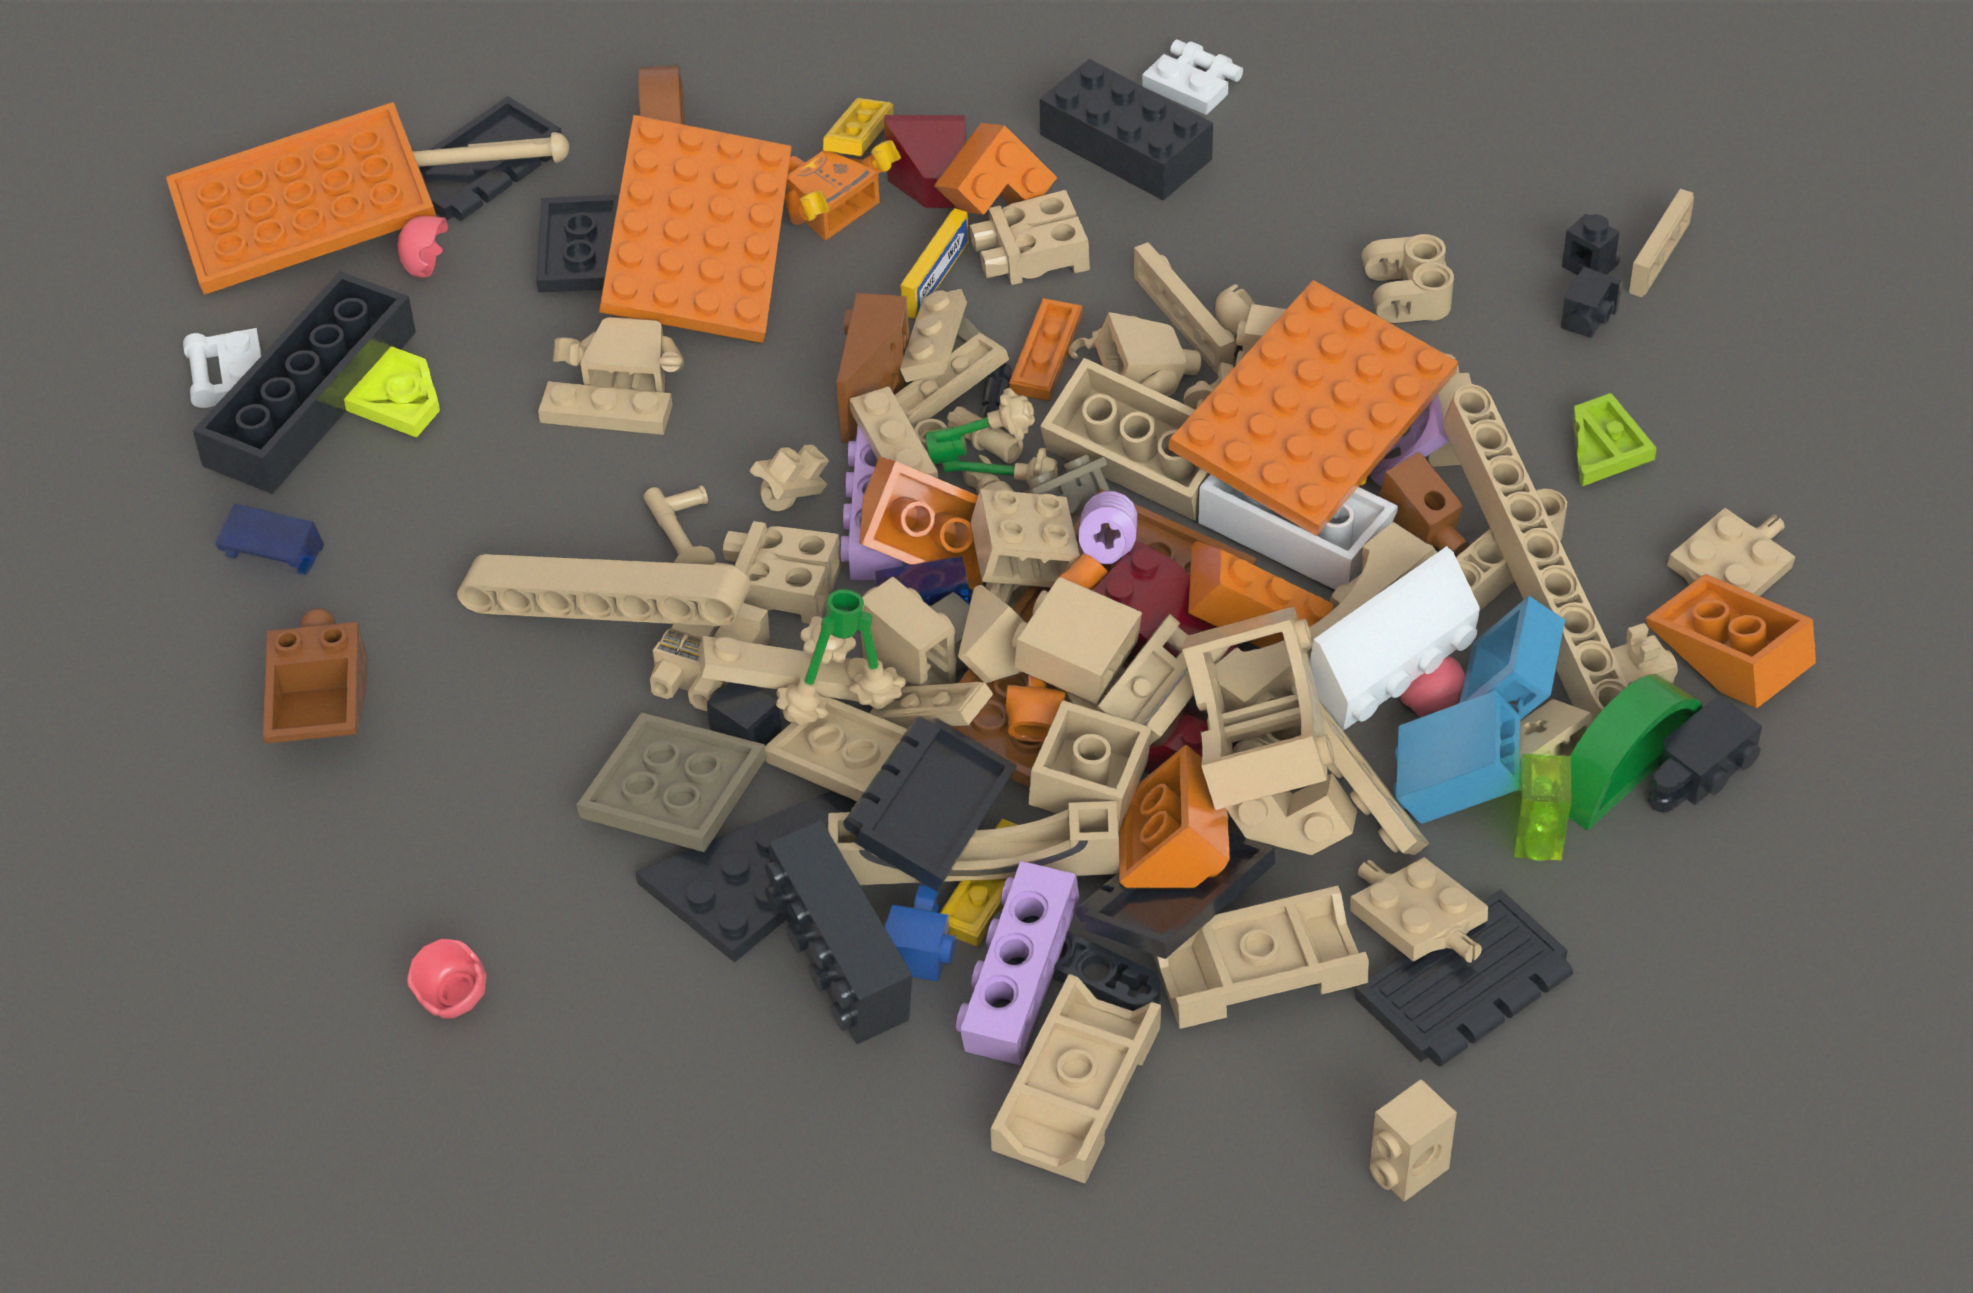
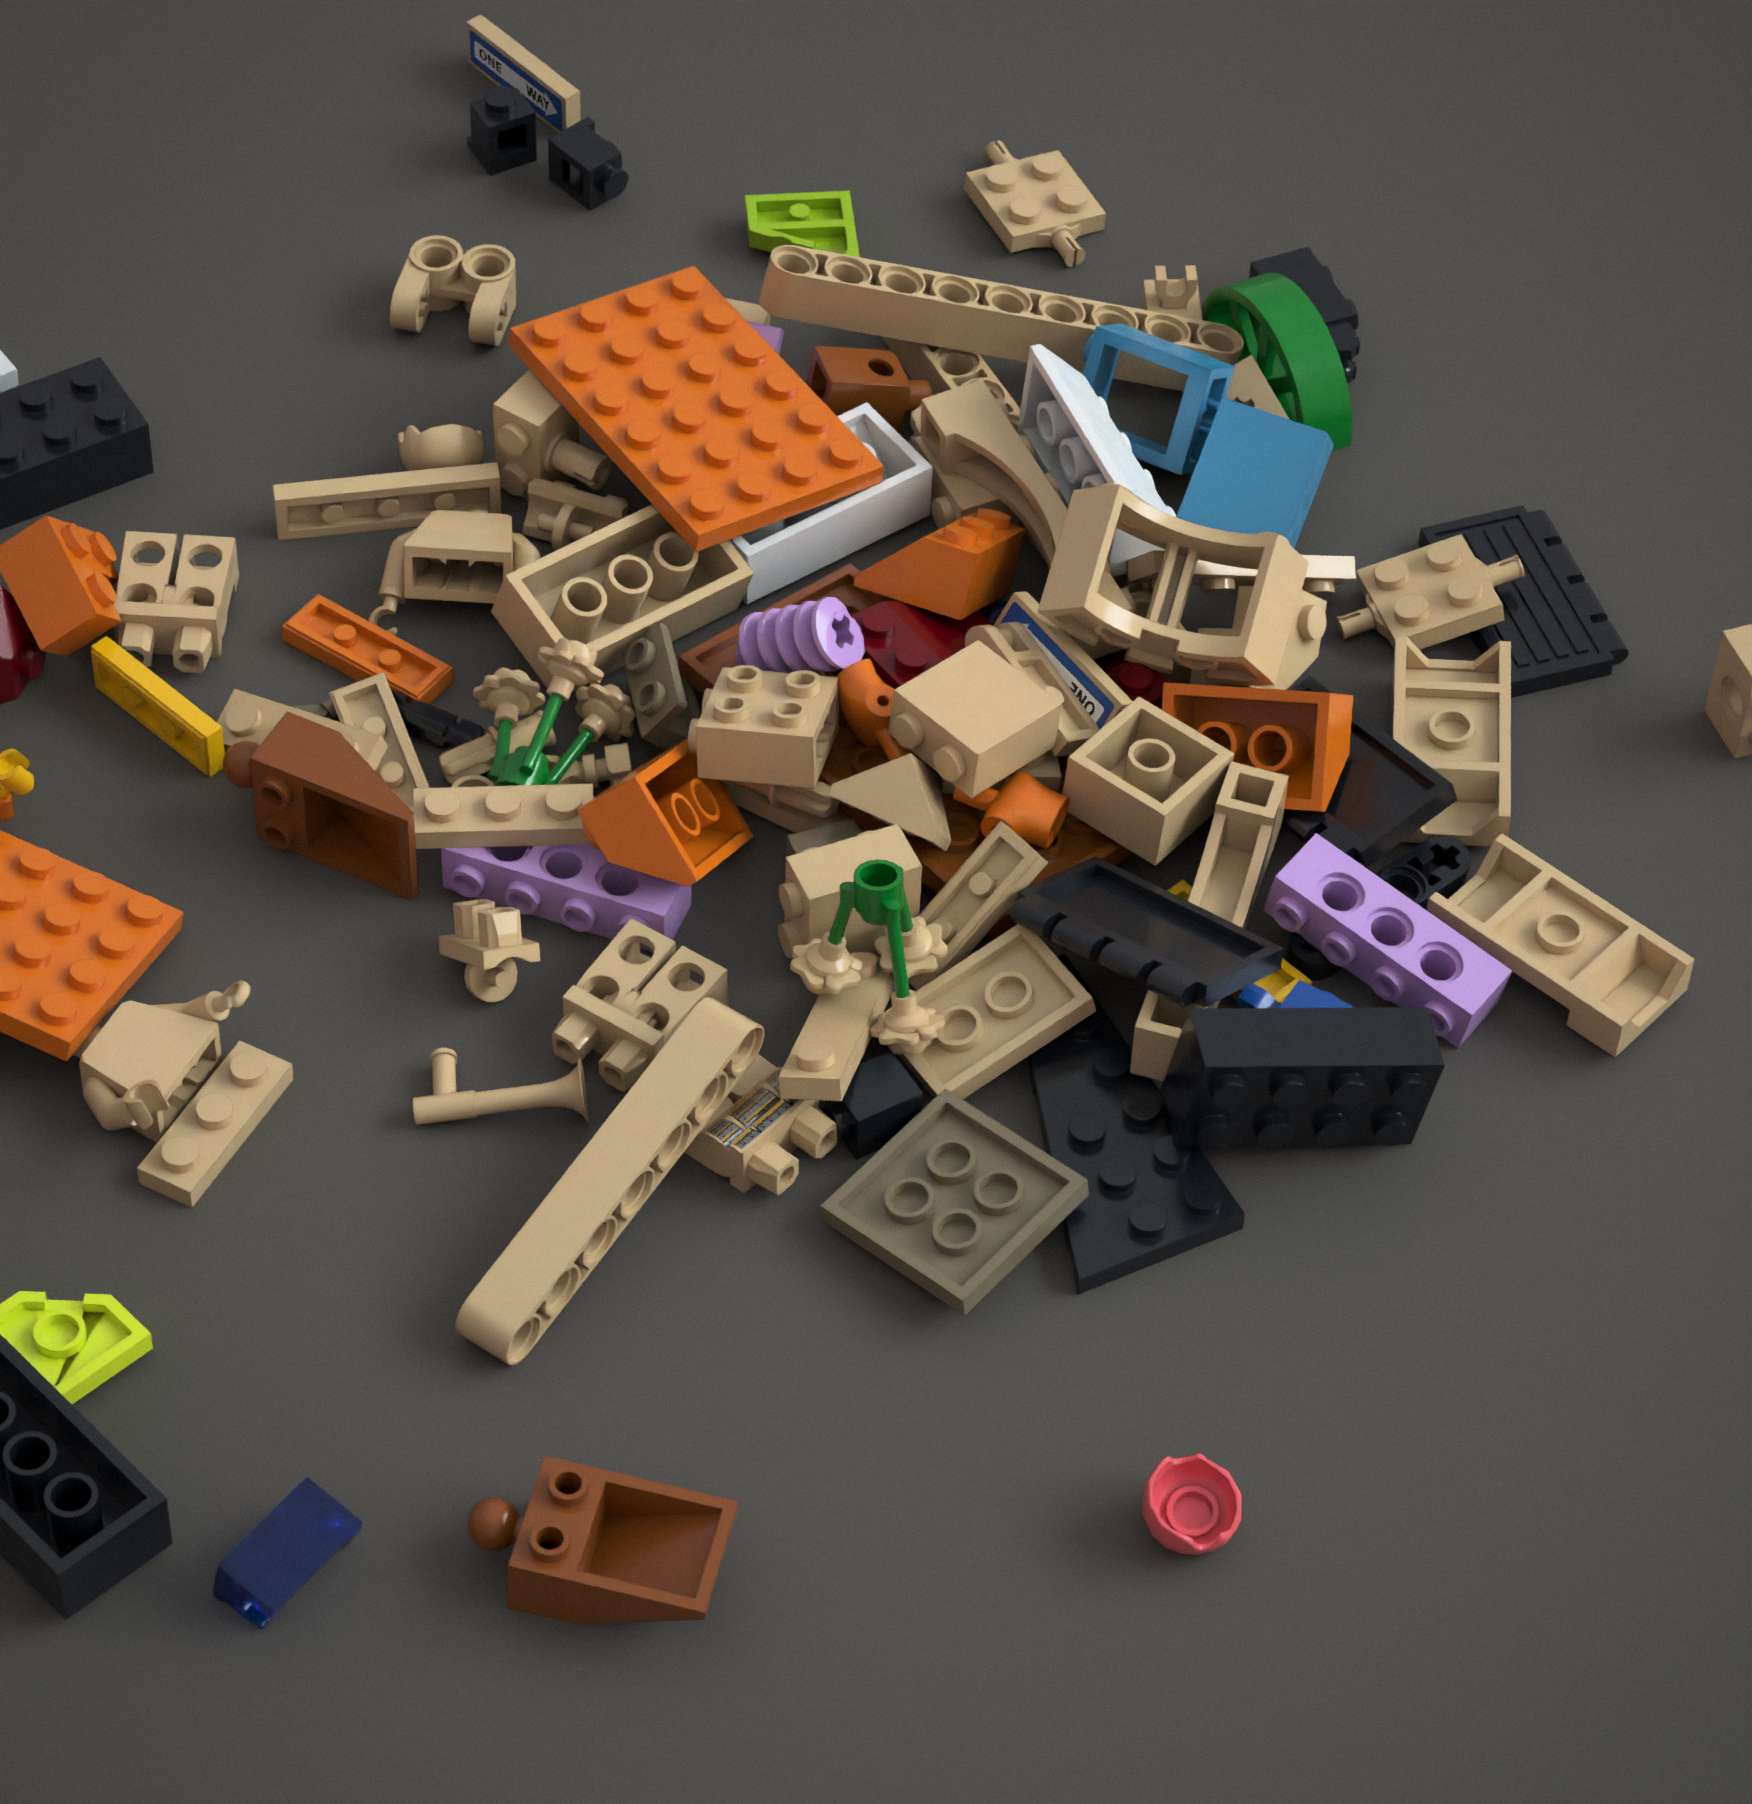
camera: 75 degrees left, 0 degrees up
(931, 579) = (754, 869): clear blue hinge -> none
(1542, 807) = (1362, 438): clear neon green brick -> none
(1736, 638) = (1166, 220): orange slope -> none

